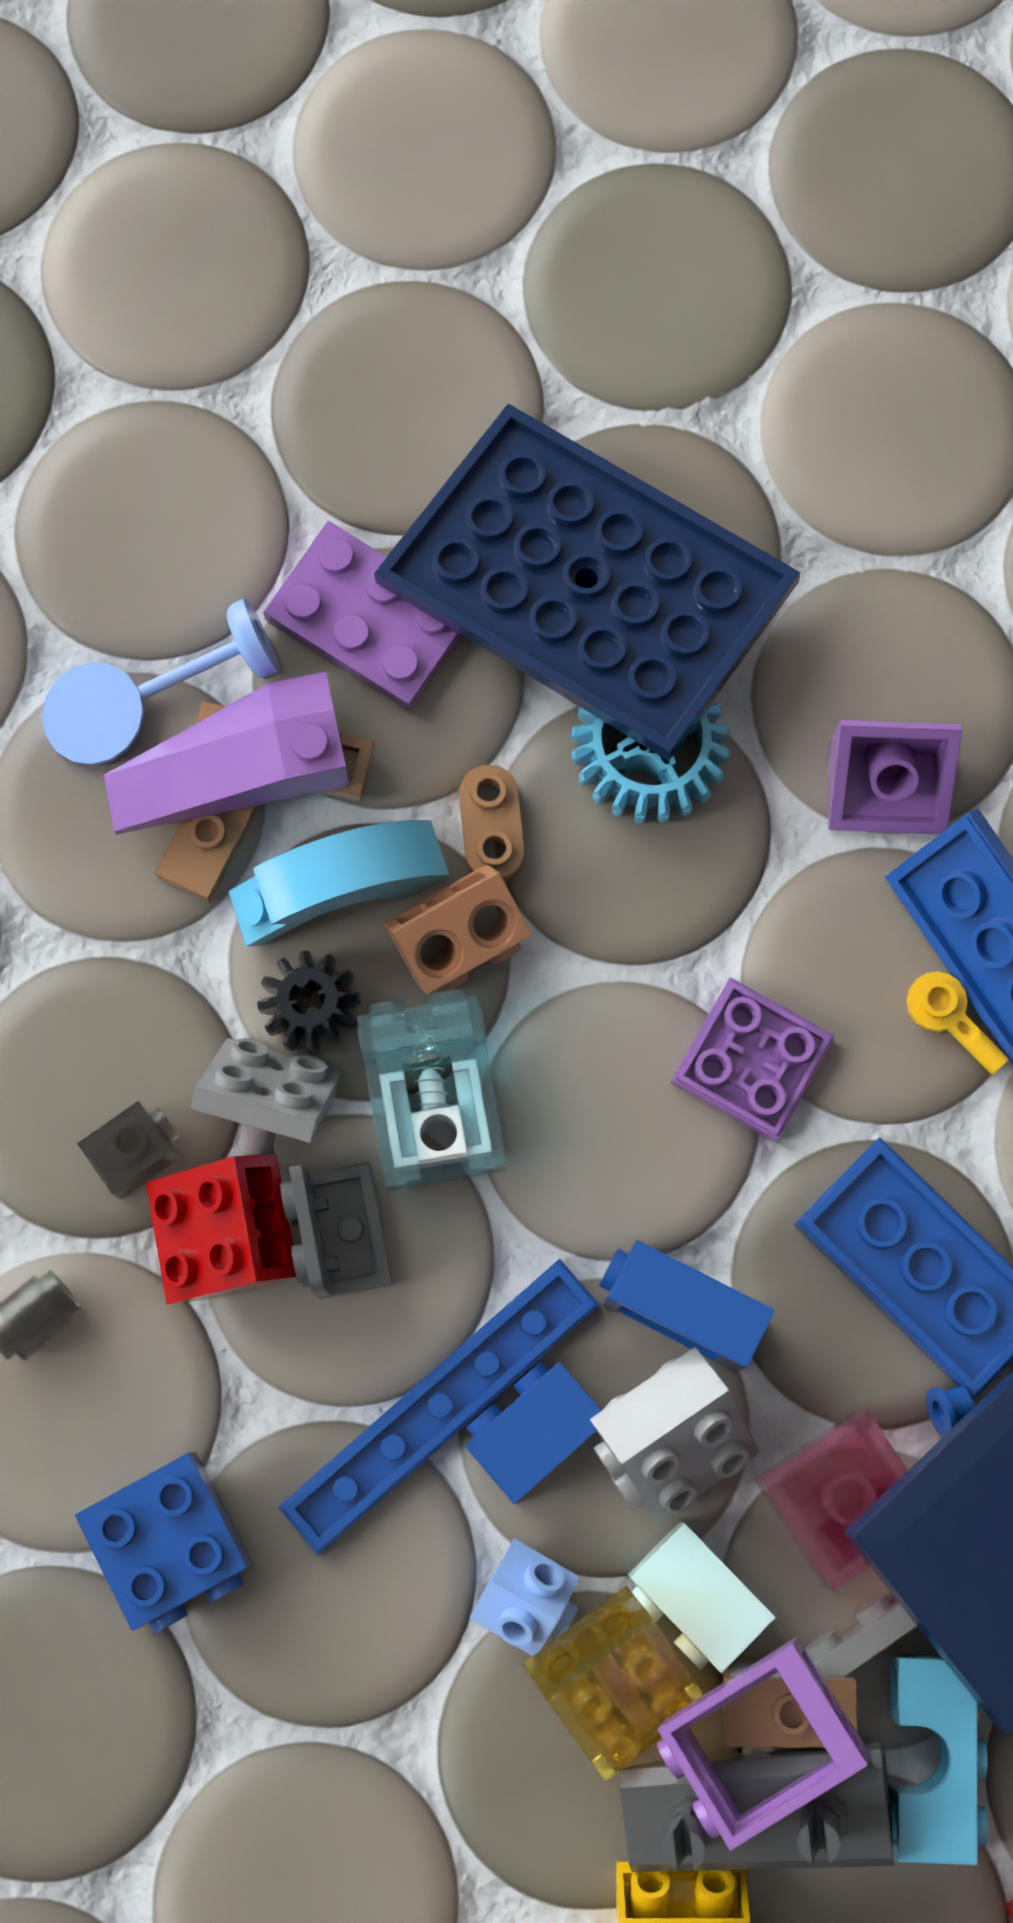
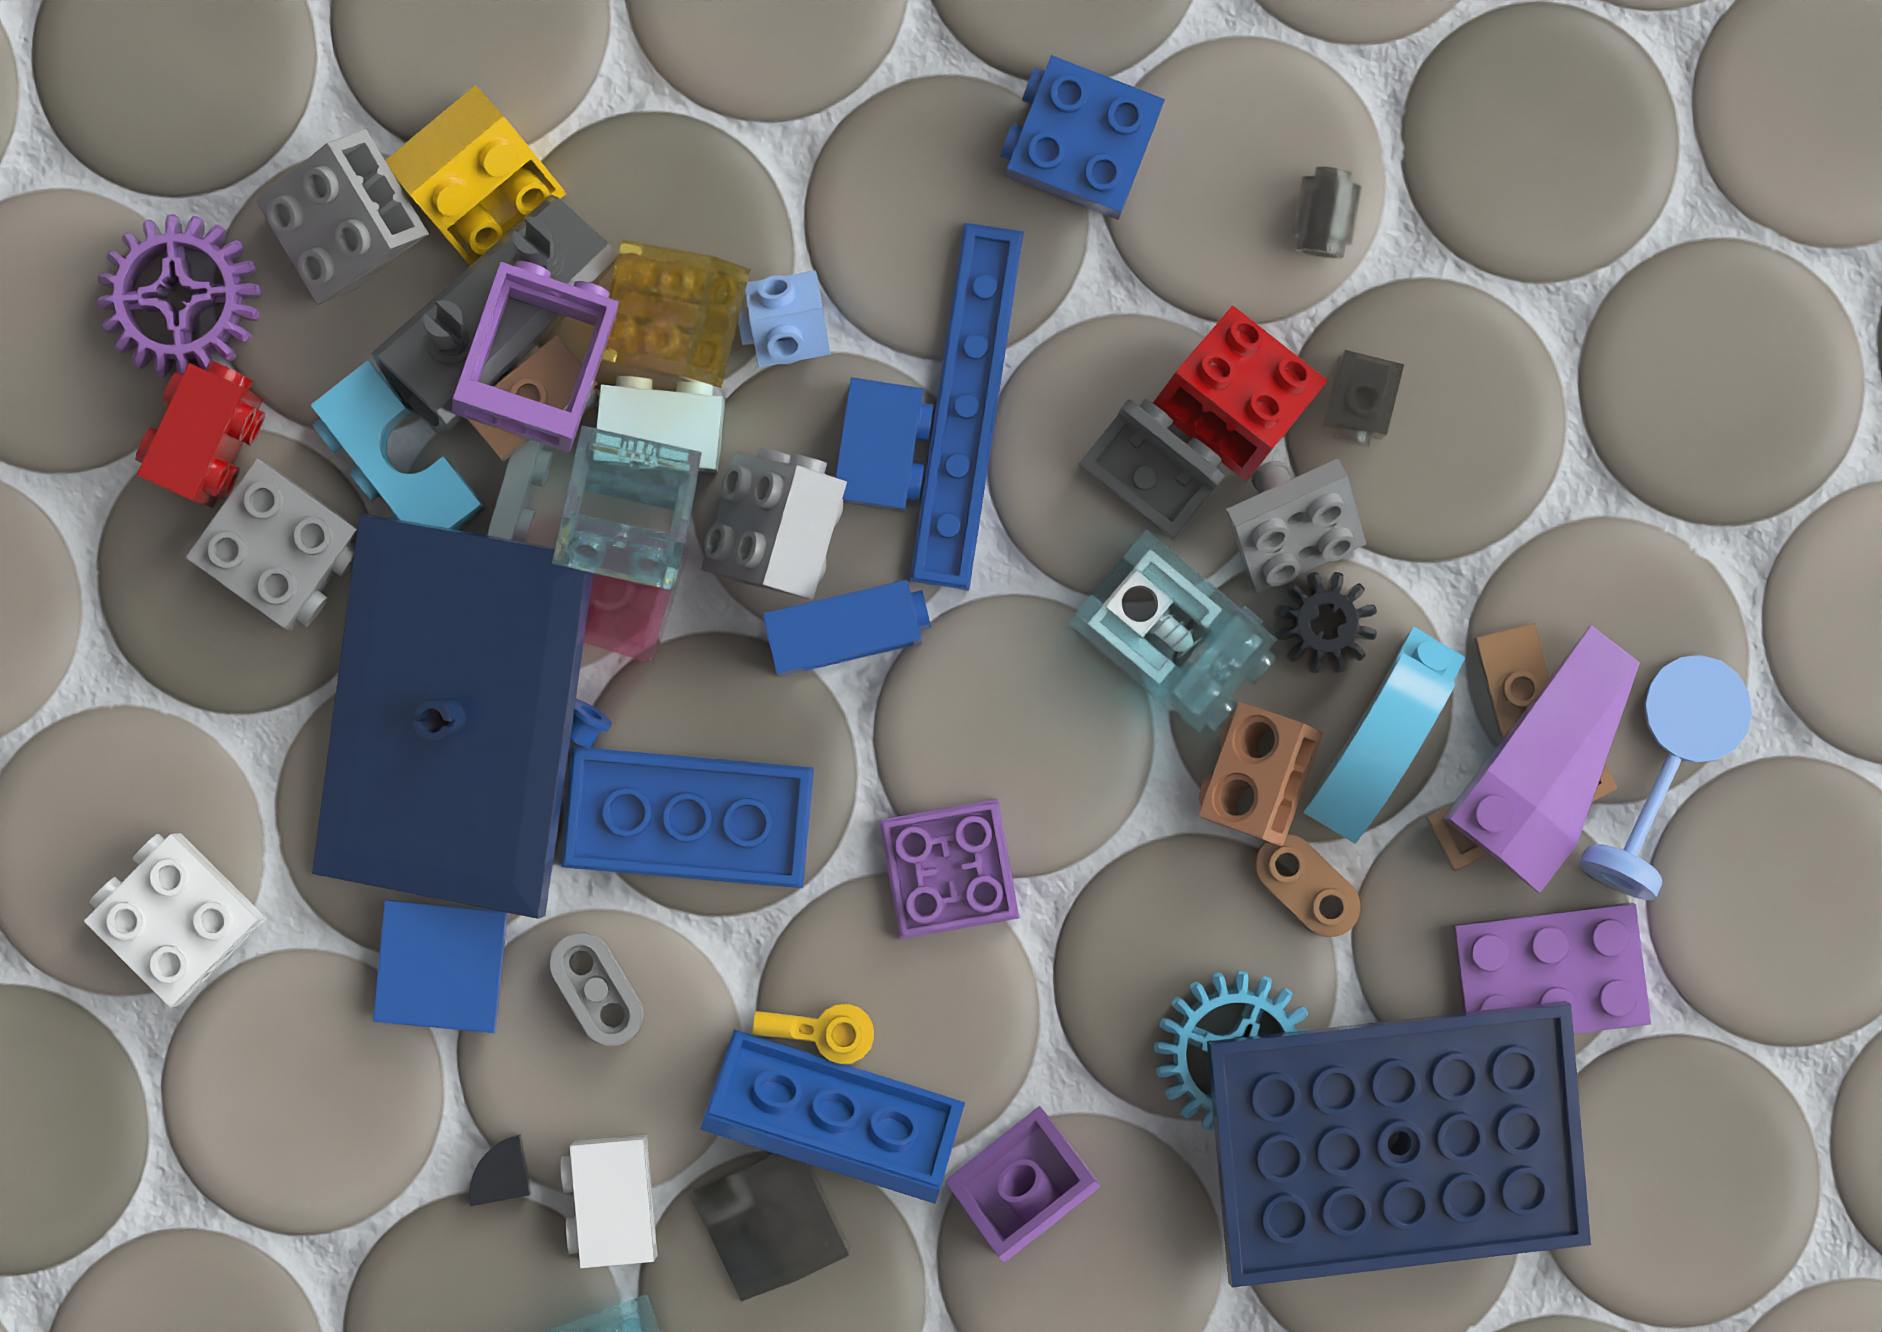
camera: 140 degrees right, 10 degrees up
(733, 1550) = (663, 480): none -> clear light blue window

